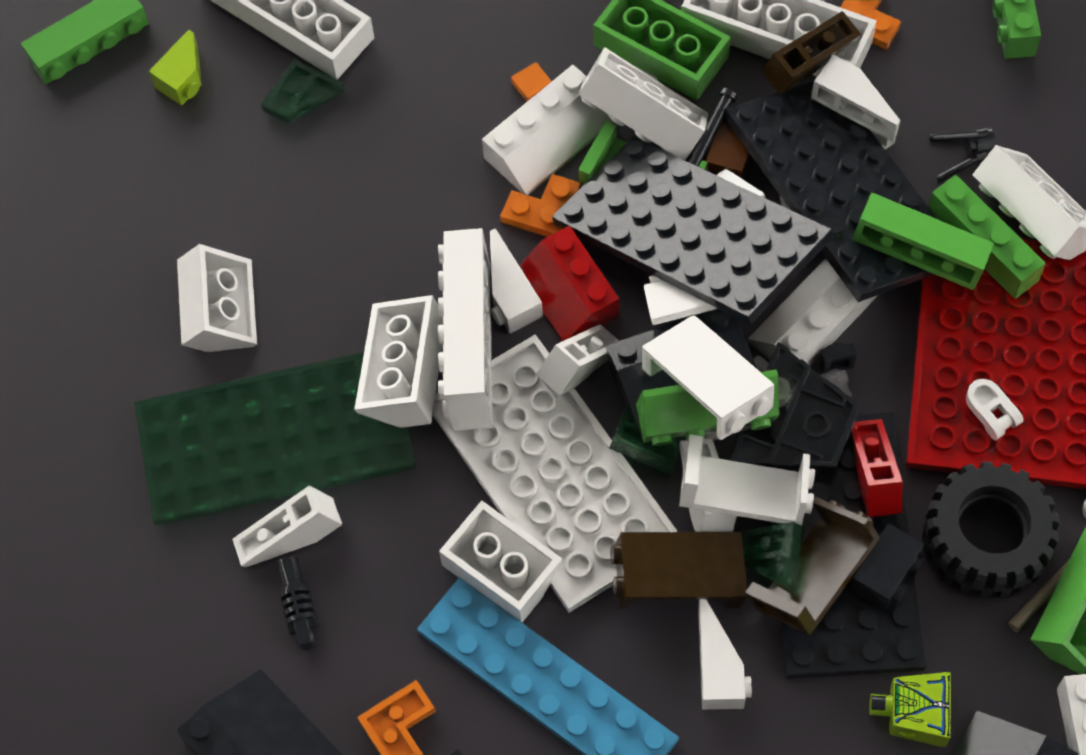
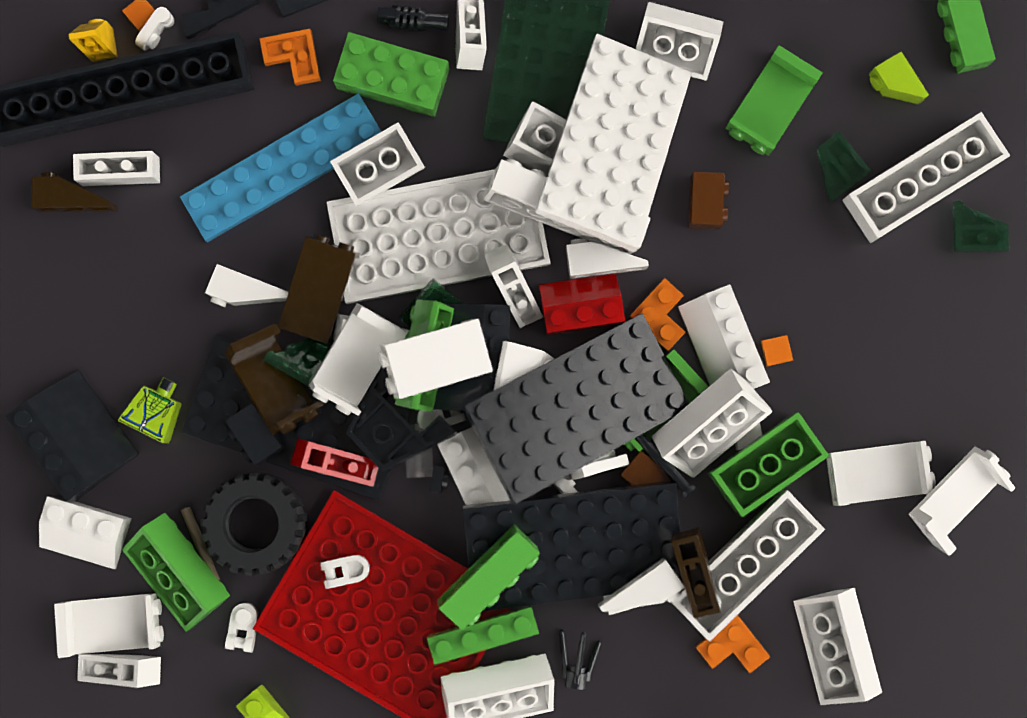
camera: 110 degrees right, 20 degrees up
(250, 184) = (773, 101): none -> bright green panel
(369, 303) = (614, 143): none -> white plate
(379, 596) = (391, 74): none -> bright green brick
(393, 204) = (707, 200): none -> reddish brown brick

